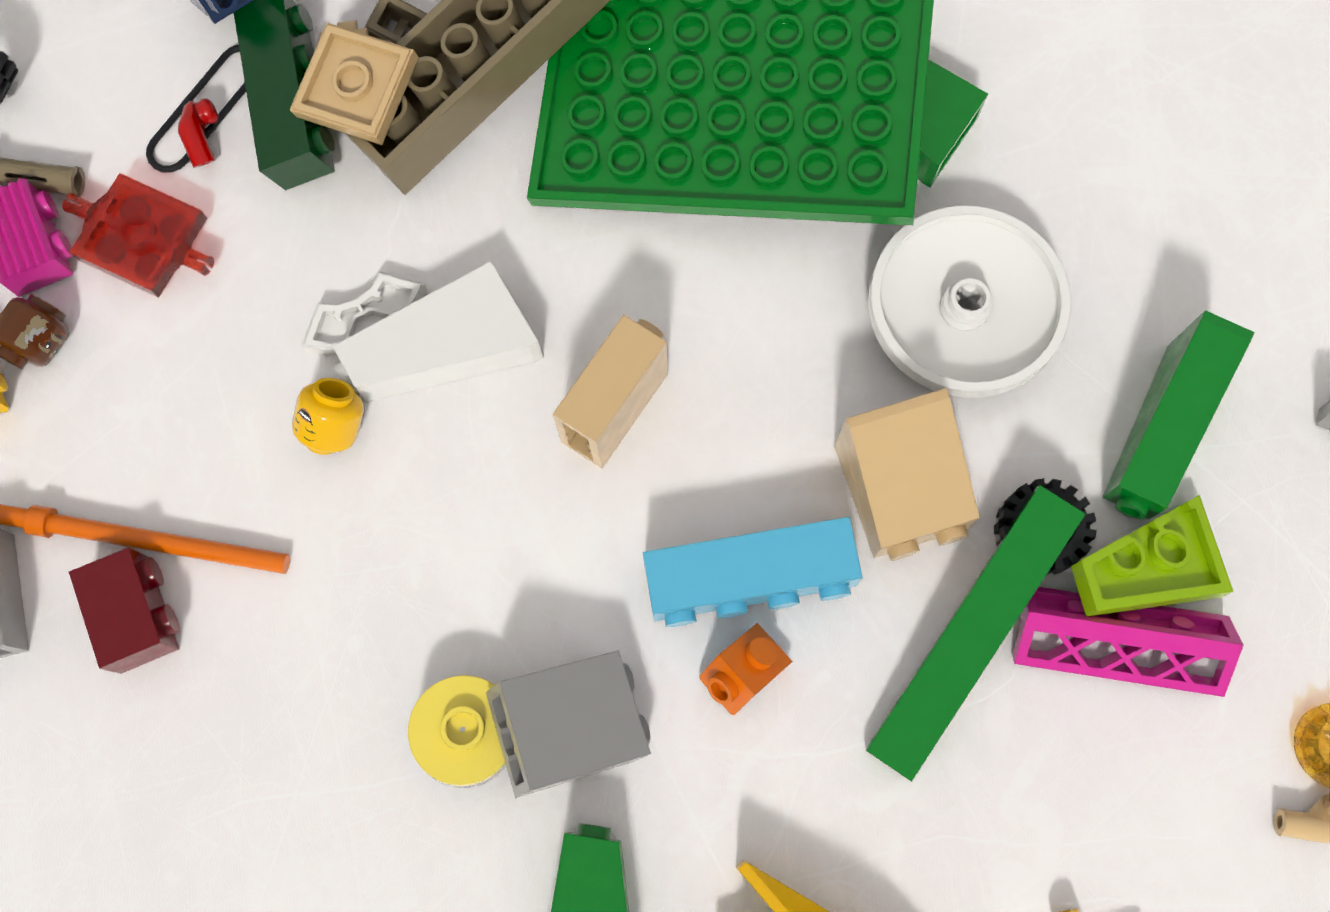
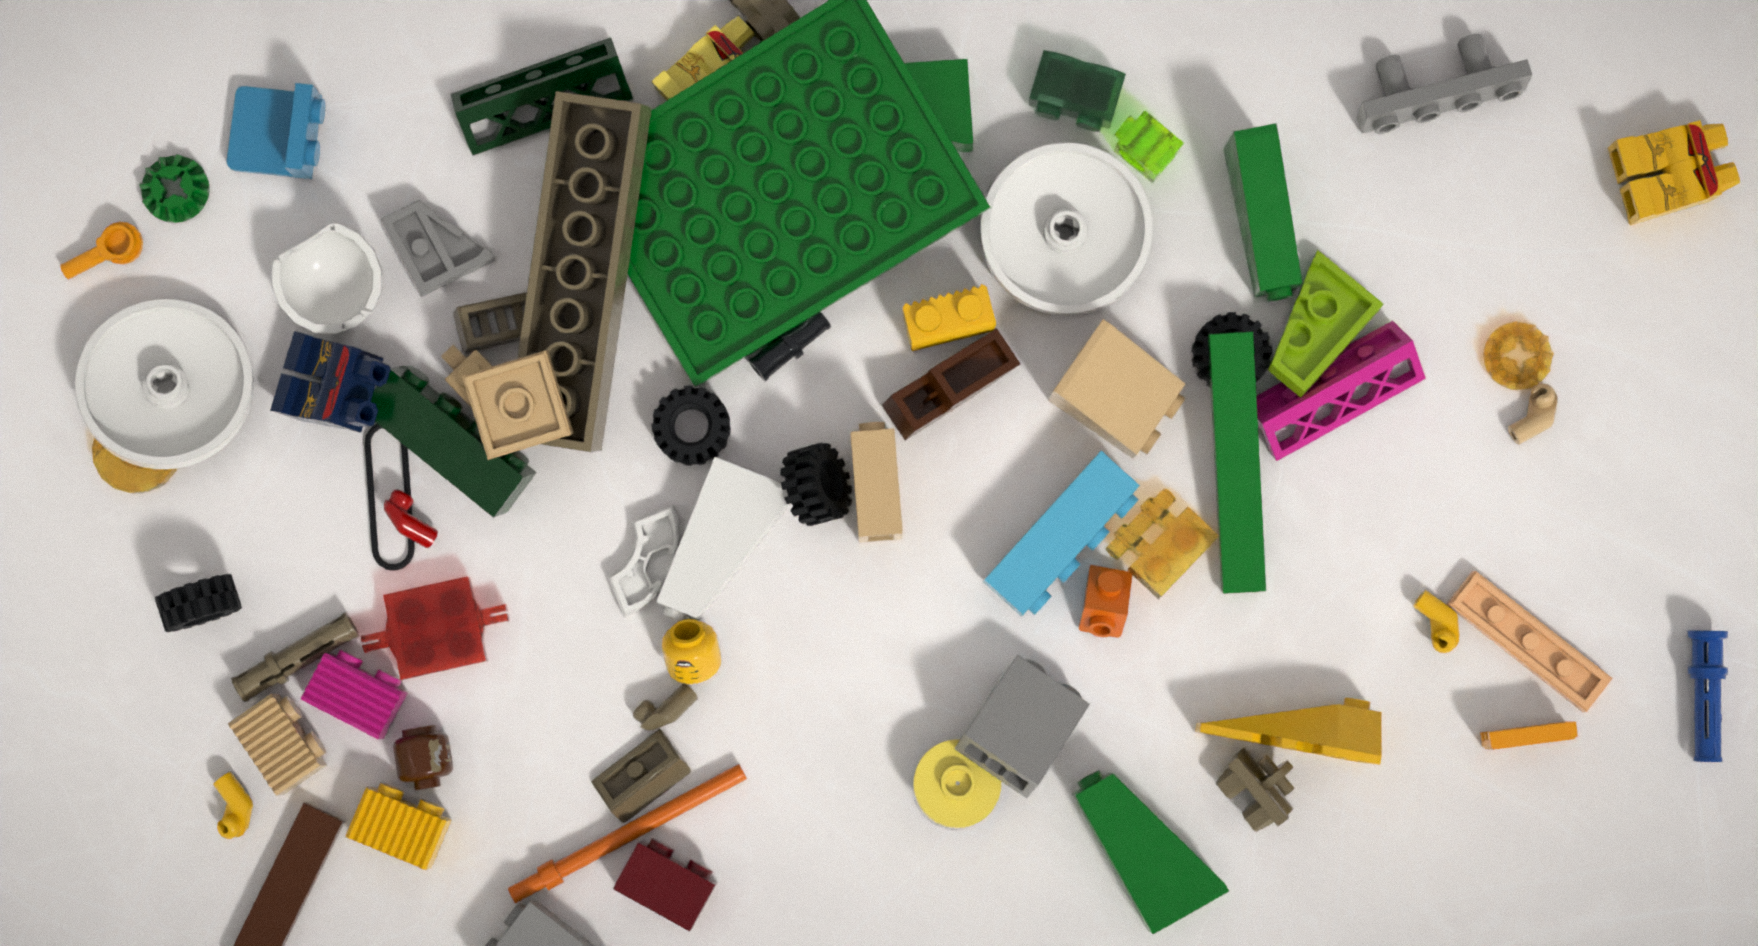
camera: 40 degrees left, 10 degrees up
(195, 498) = (641, 776): none -> dark tan slope
(266, 457) = (667, 712): none -> dark tan arm
(490, 205) = (691, 399): none -> black tyre
(542, 343) = (816, 484): none -> black tyre
(638, 225) = (788, 346): none -> black pin
(754, 361) = (950, 384): none -> reddish brown slope
(798, 300) = (948, 318): none -> yellow brick
(844, 670) = (1172, 552): none -> clear yellow plate
(1068, 194) = (1076, 90): none -> clear green brick
(1101, 286) = (1147, 145): none -> clear neon green brick

